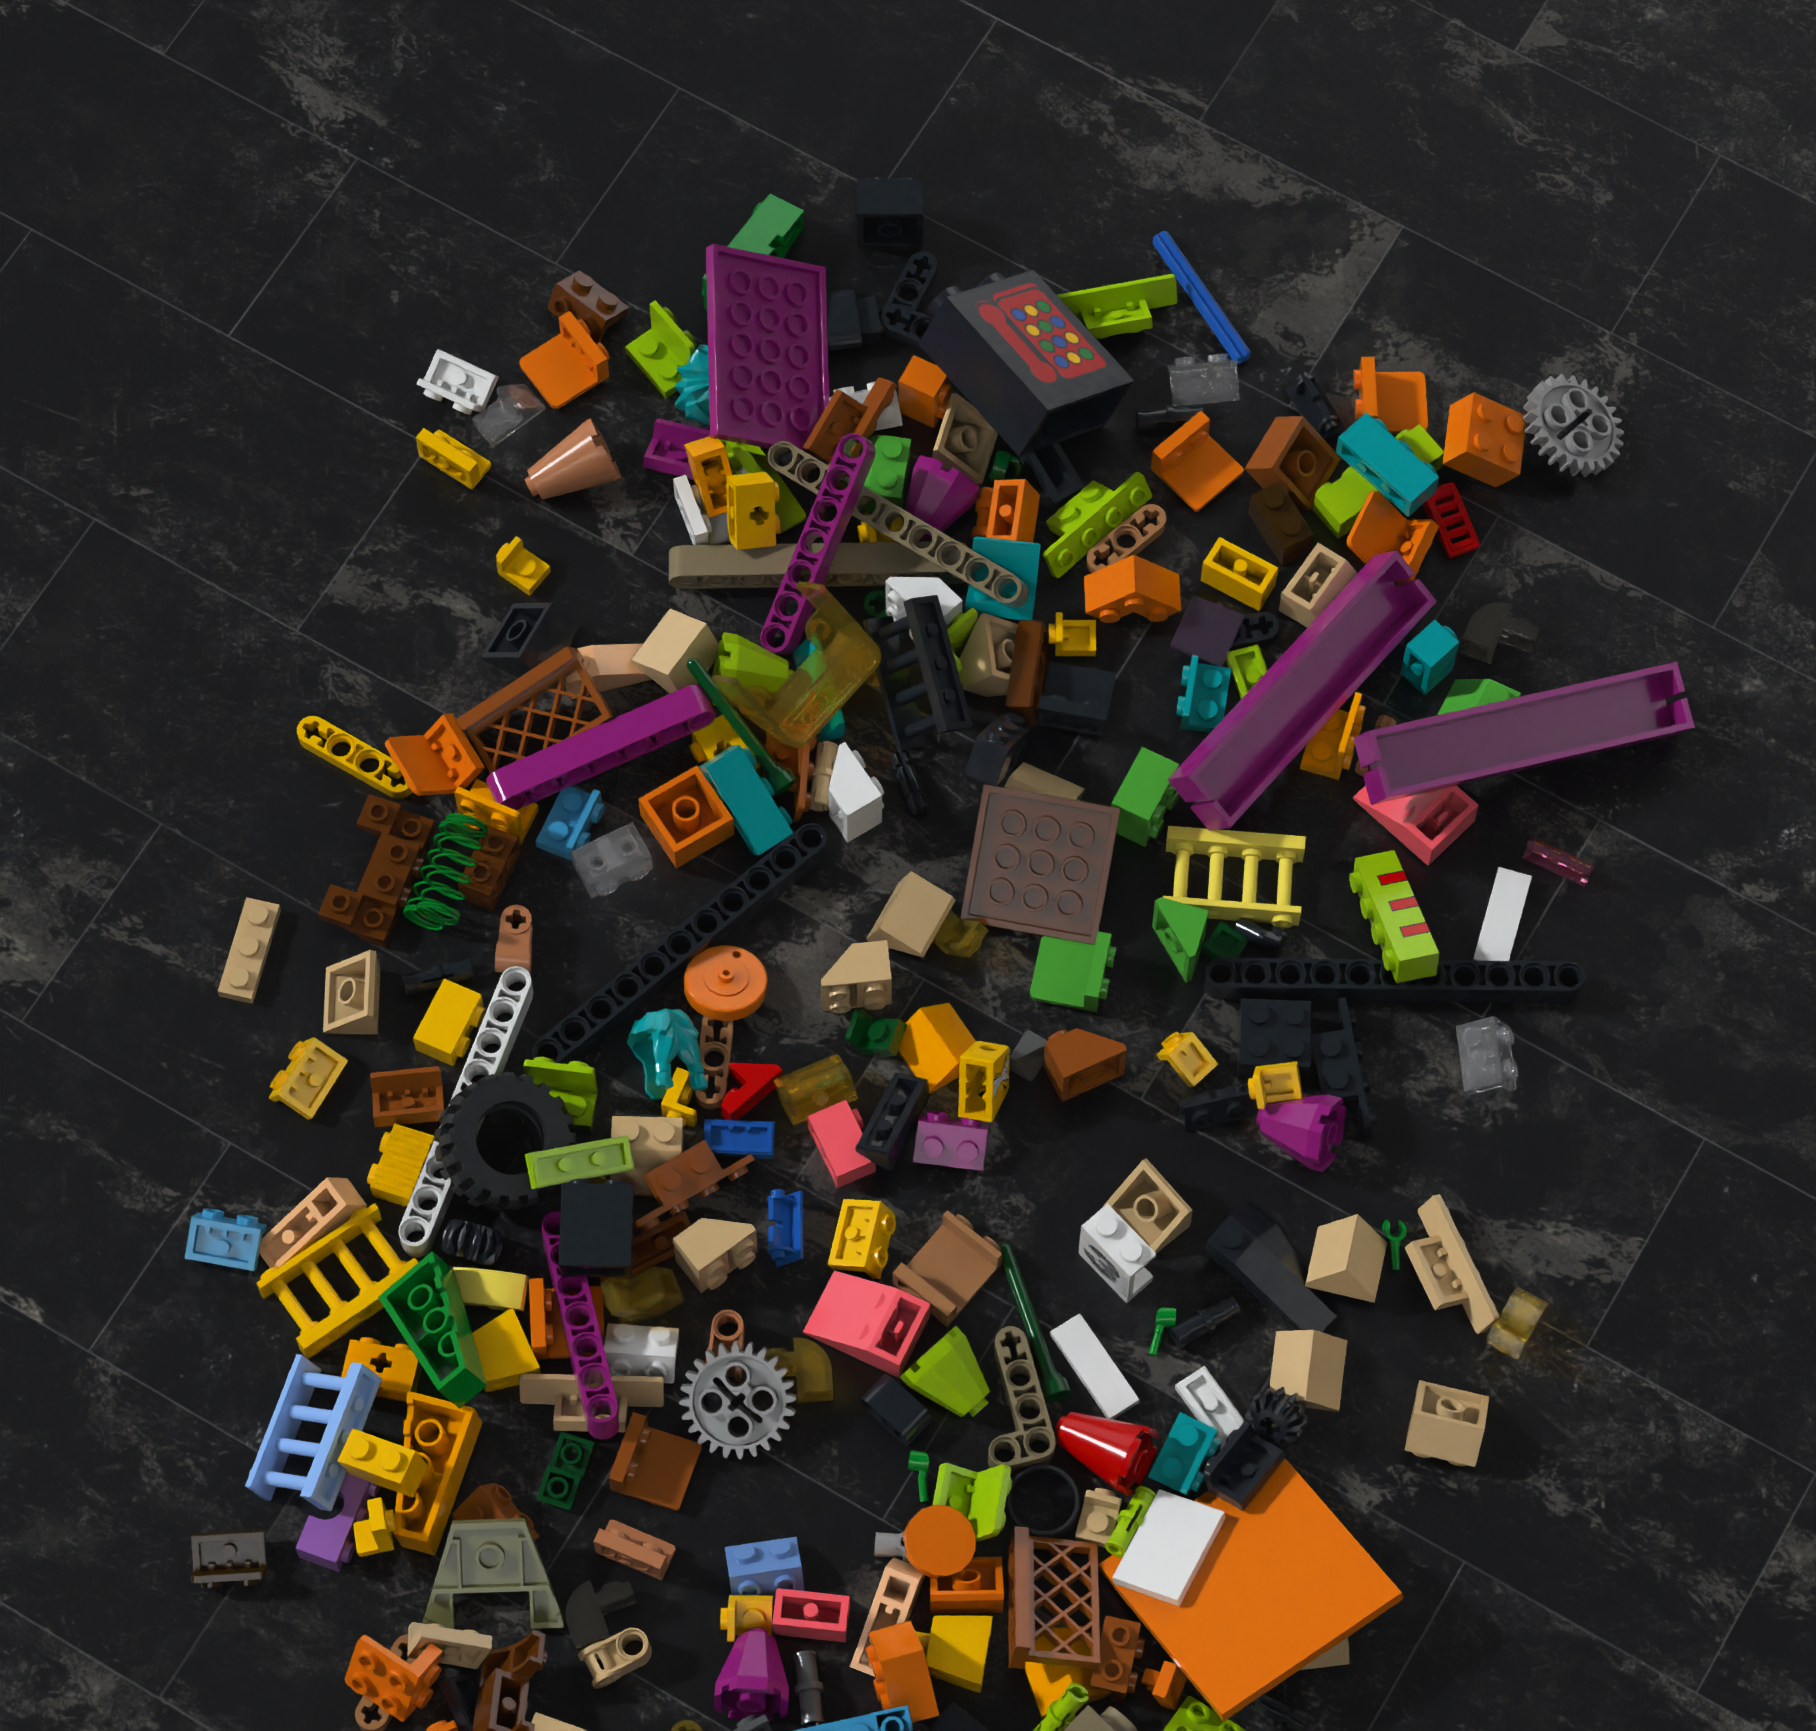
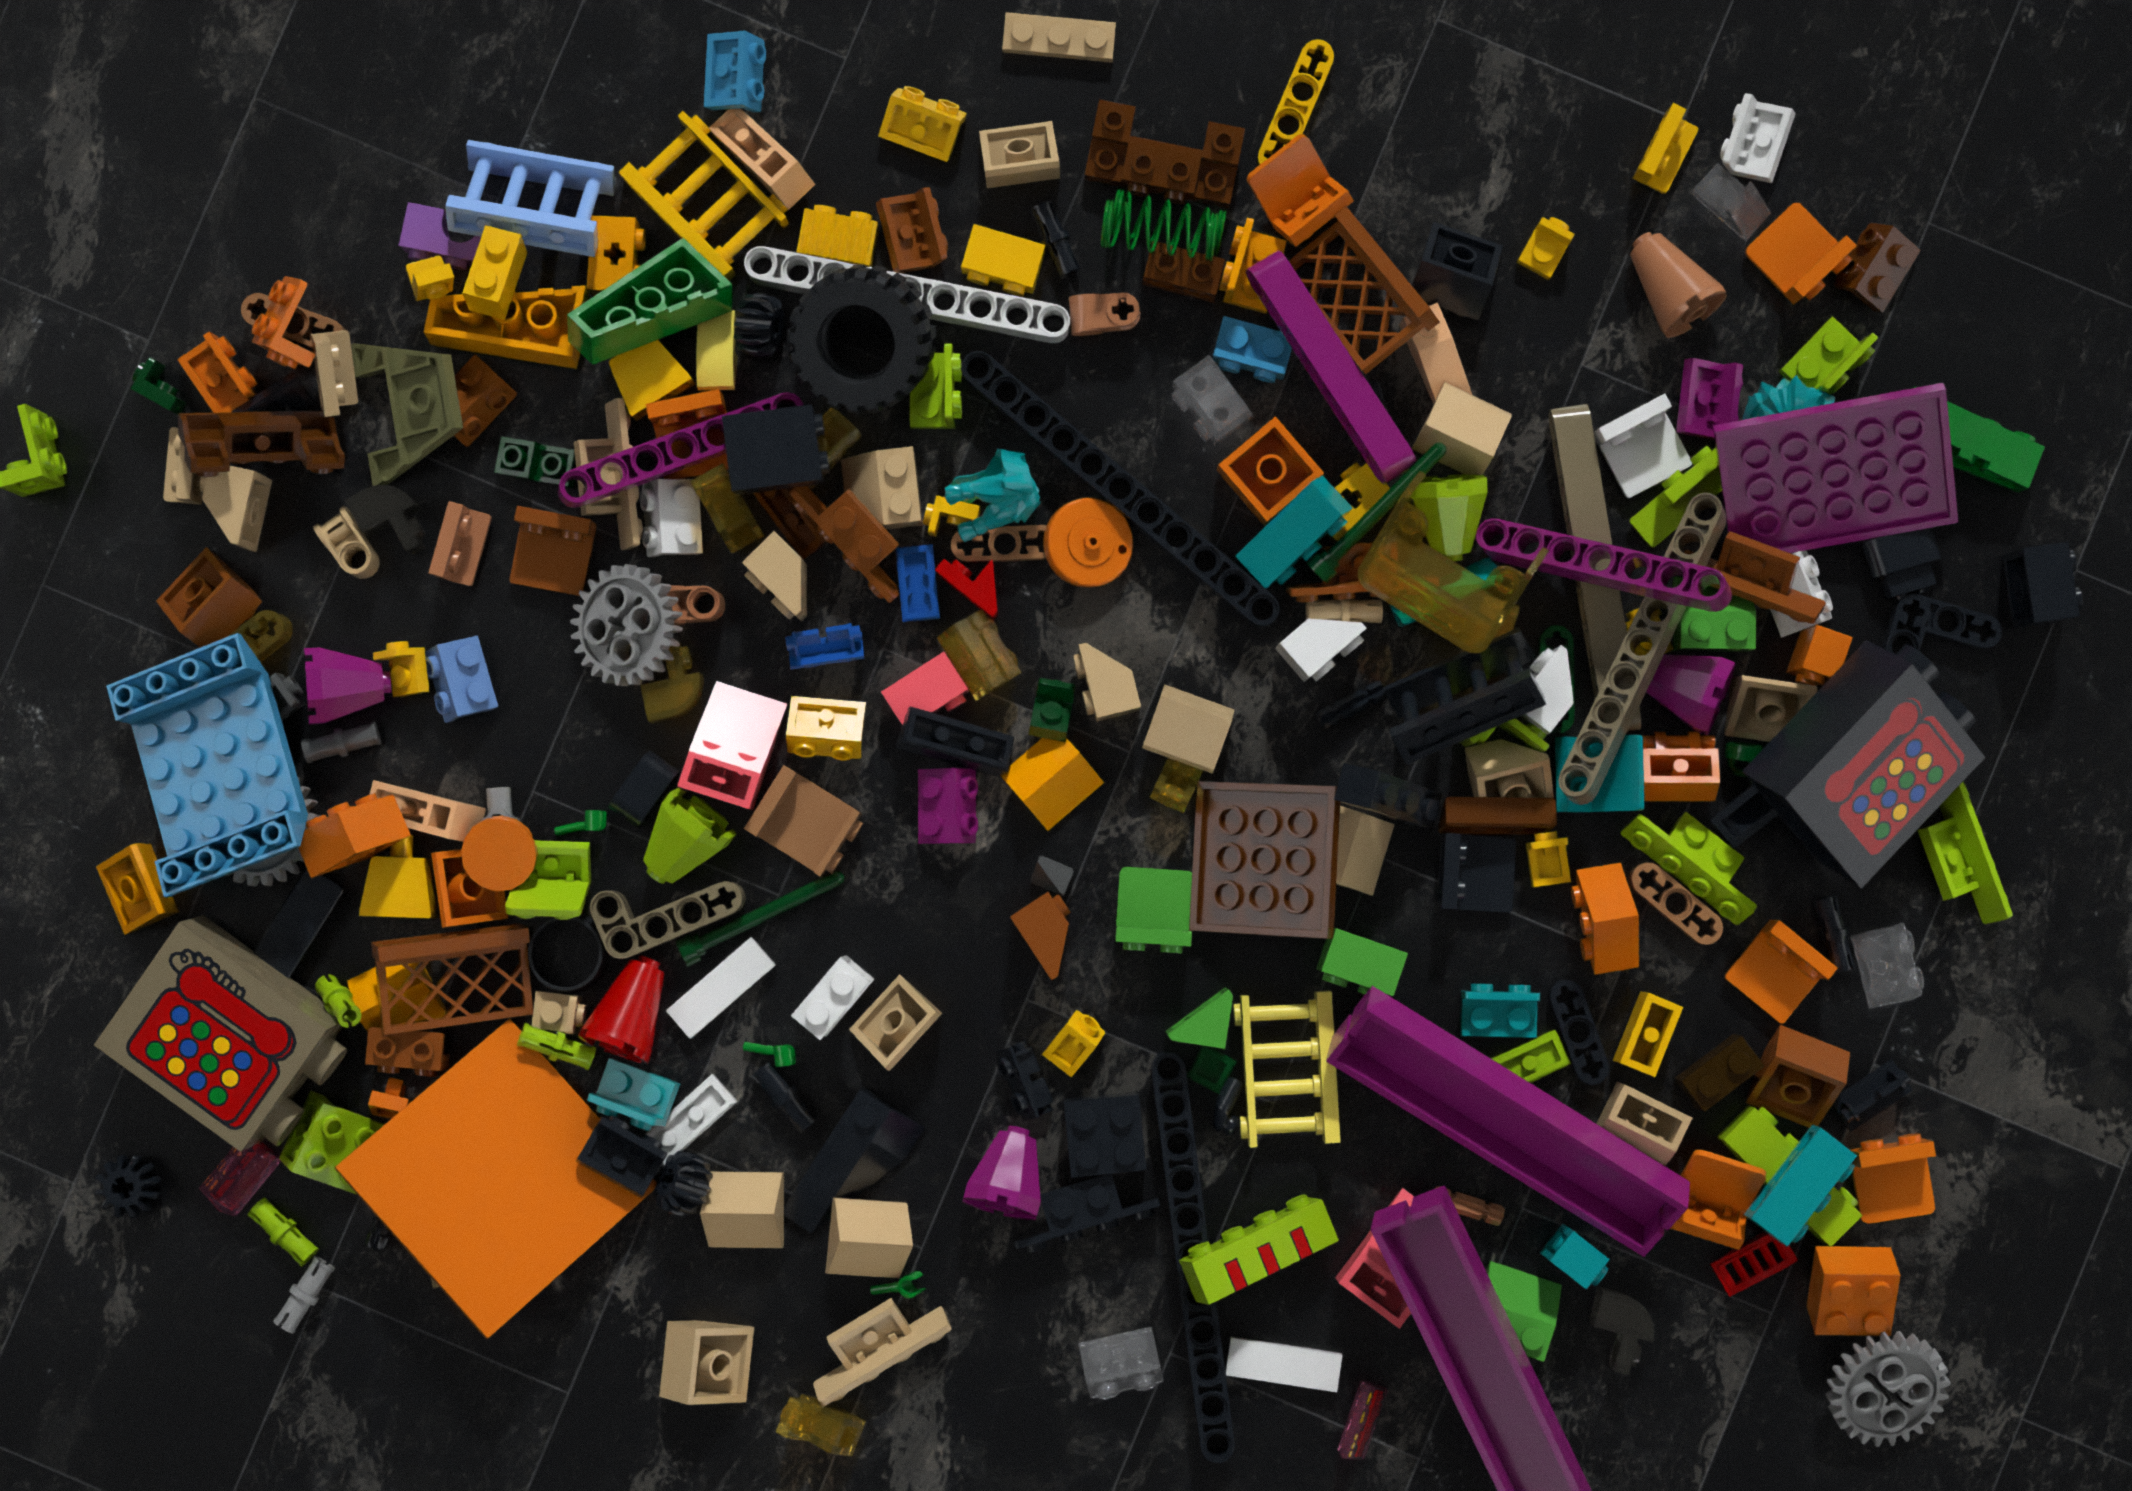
camera: 85 degrees right, 20 degrees up
(229, 1557) = (396, 138): dark brown bracket -> none
(579, 1162) = (846, 420): lime tile -> none
(709, 470) = (1672, 436): light orange brick -> none
(745, 494) = (1637, 486): yellow brick -> none
(811, 1615) = (410, 733): coral brick -> none
(981, 1069) = (1027, 831): yellow torso -> none
(1169, 1547) = (528, 1089): white tile -> none
(1201, 297) = (1993, 950): blue axle -> none
(1207, 630) = (1575, 1006): clear purple piece -> none
(1275, 1083) = (1046, 1141): yellow bracket -> none
(1334, 743) = (1454, 1163): light orange bracket -> none

